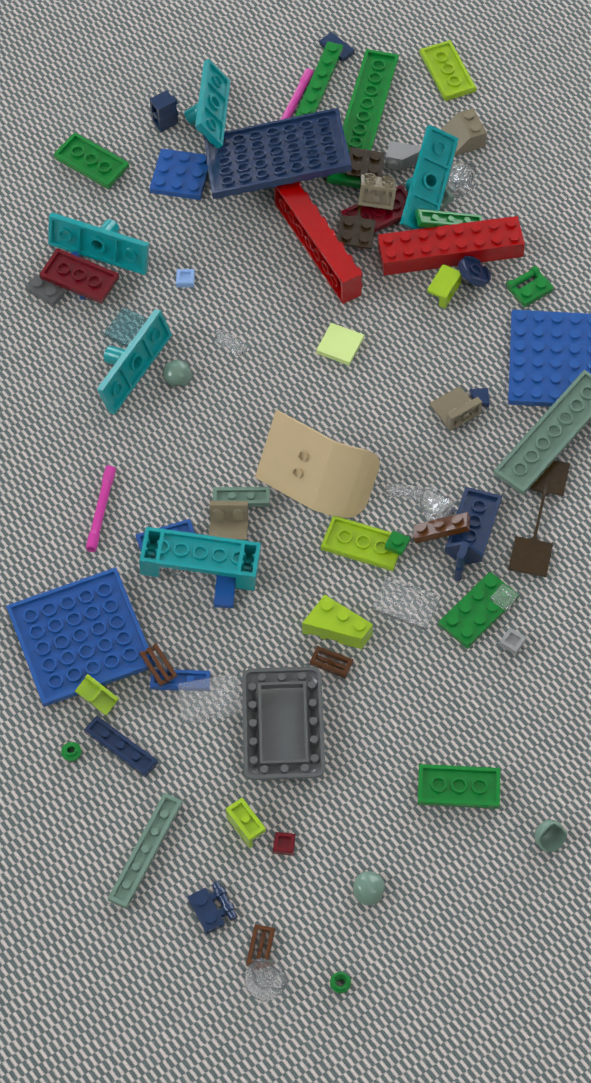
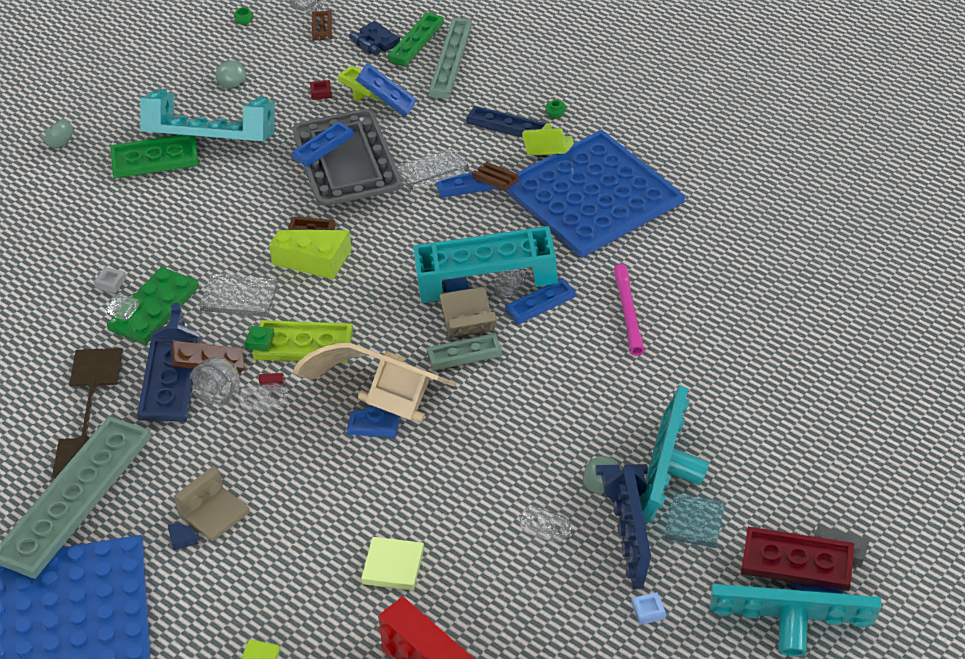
camera: 165 degrees right, 15 degrees down
(169, 342) = (623, 490): none -> dark blue hinge
(171, 889) = (415, 39): none -> green plate
(224, 798) = (386, 89): none -> blue tile
(301, 735) = (322, 144): none -> blue tile
(394, 503) = (272, 378): none -> dark red tile
(402, 802) = (159, 117): none -> teal plate

